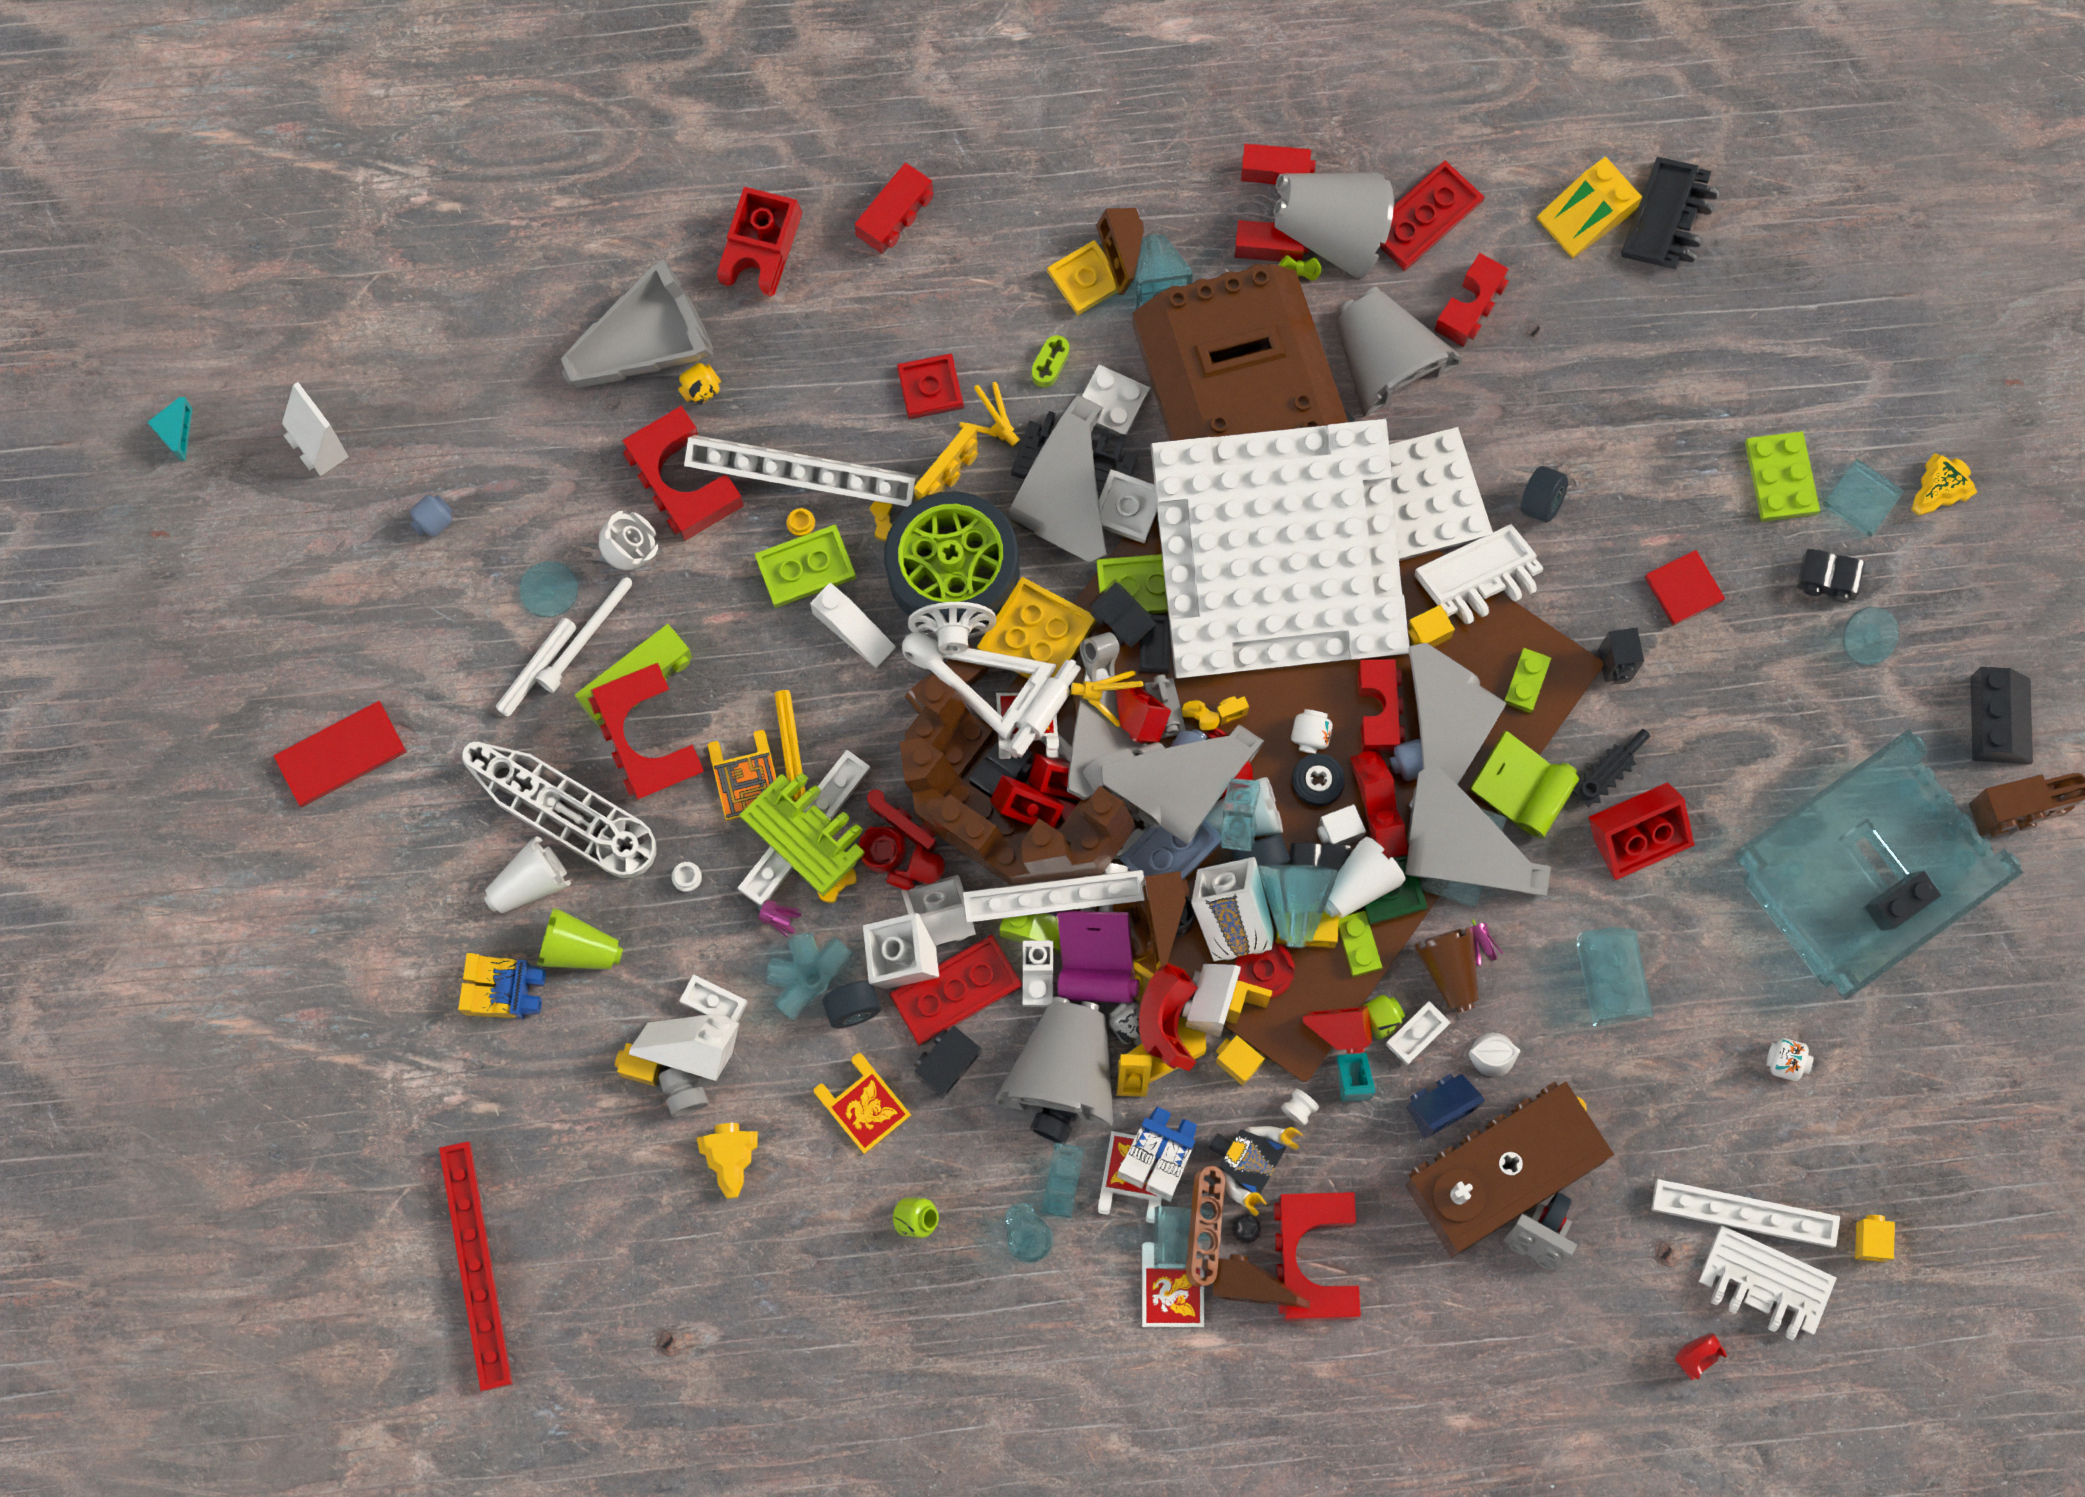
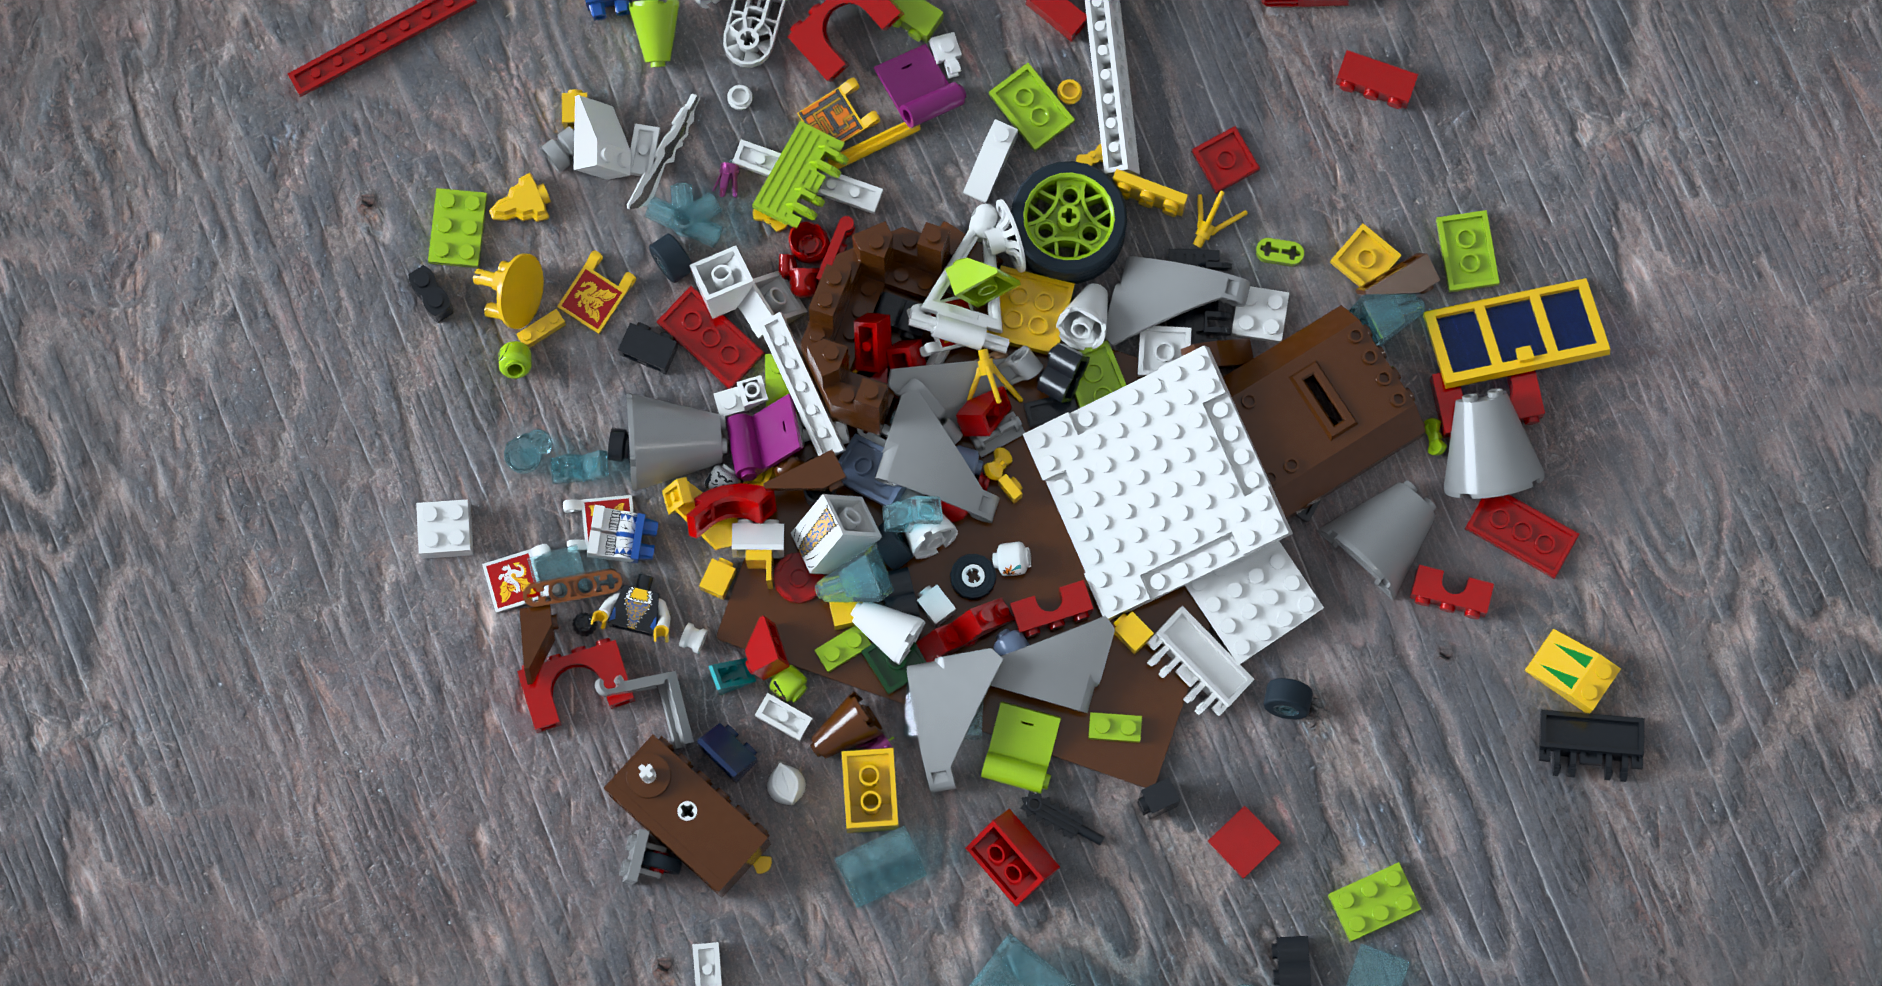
camera: 75 degrees right, 5 degrees up
(709, 637) = (946, 50): none -> white plate
(726, 978) = (664, 154): none -> white sword
(733, 1242) = (457, 228): none -> lime plate
(743, 677) = (919, 89): none -> magenta door
(813, 1291) = (428, 290): none -> black brick
(830, 1188) = (518, 290): none -> yellow piece
(885, 1178) = (541, 328): none -> yellow piece
(996, 665) = (978, 282): none -> lime slope
(1067, 572) = (1085, 318): none -> white cone
(1091, 1356) = (444, 529): none -> white brick
(1109, 176) = (1467, 251): none -> lime plate
(1145, 434) = (1226, 352): none -> reddish brown slope
(1215, 152) = (1516, 333): none -> door
(1367, 1152) = (670, 697): none -> light grey hinge
(1532, 959) = (870, 790): none -> yellow slope

